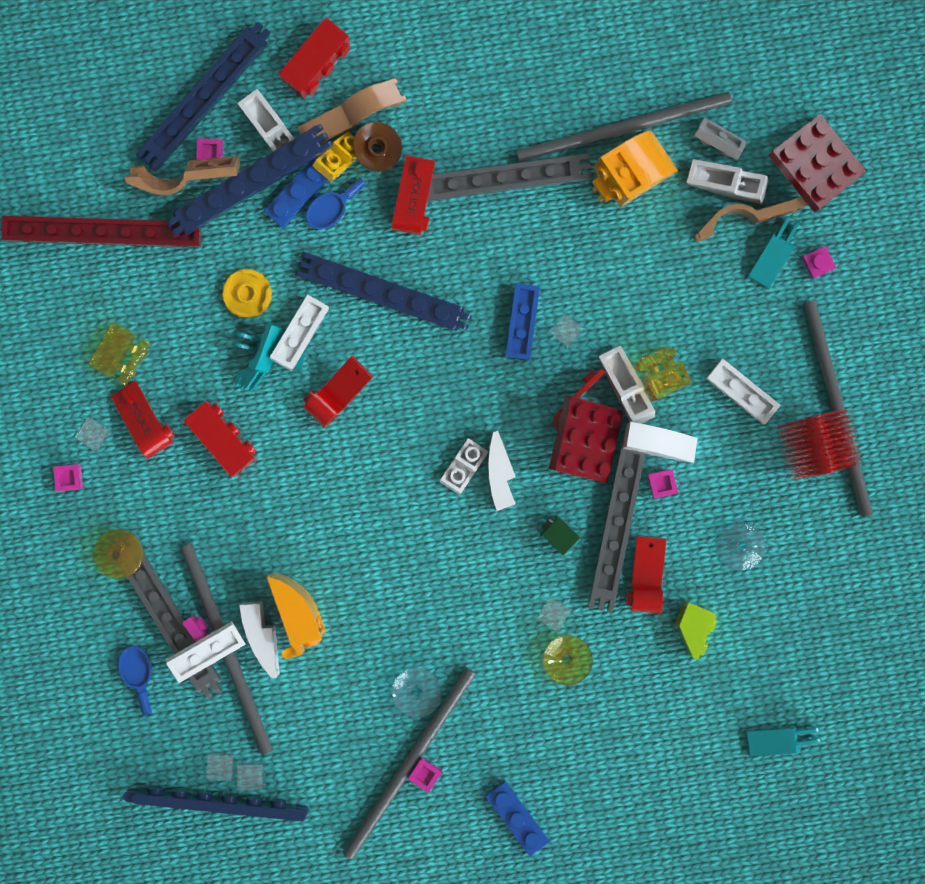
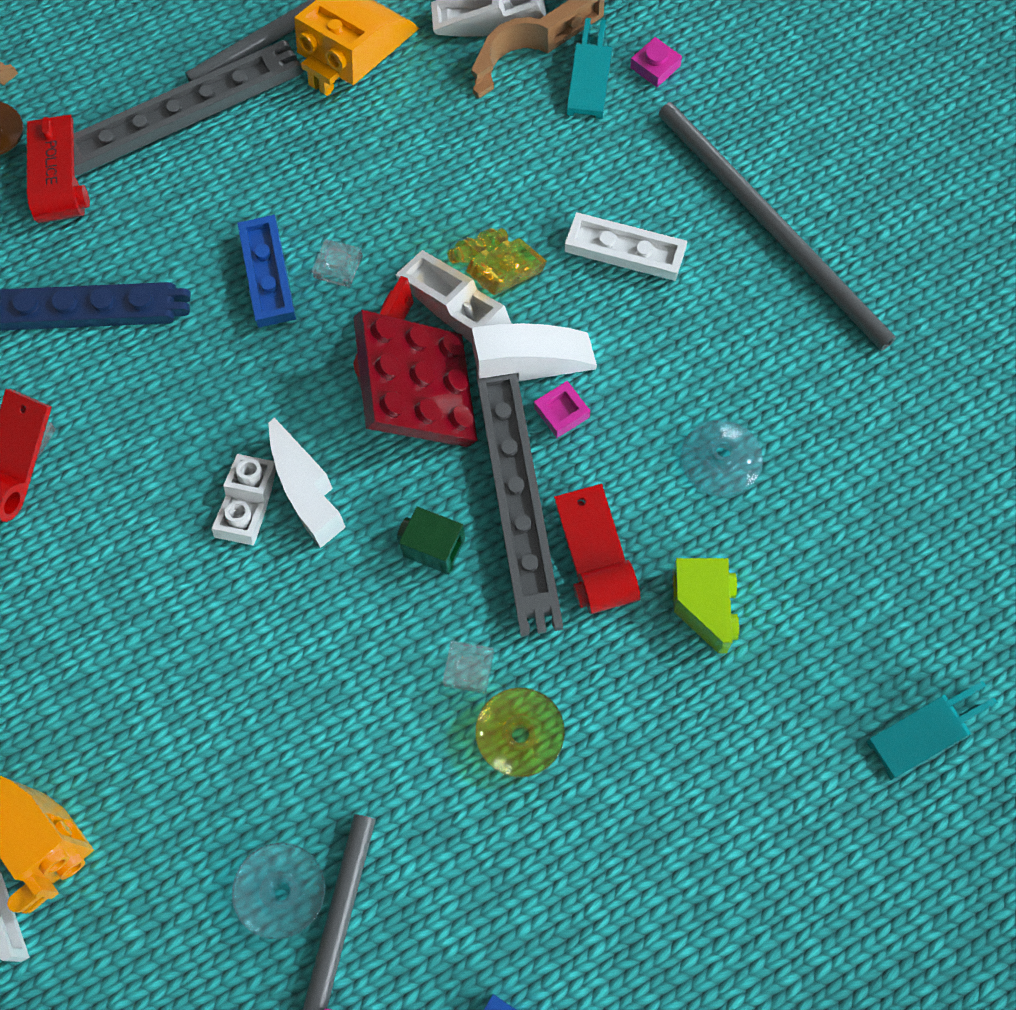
camera: 15 degrees left, 20 degrees down
(819, 445) = (765, 255): red piece -> none

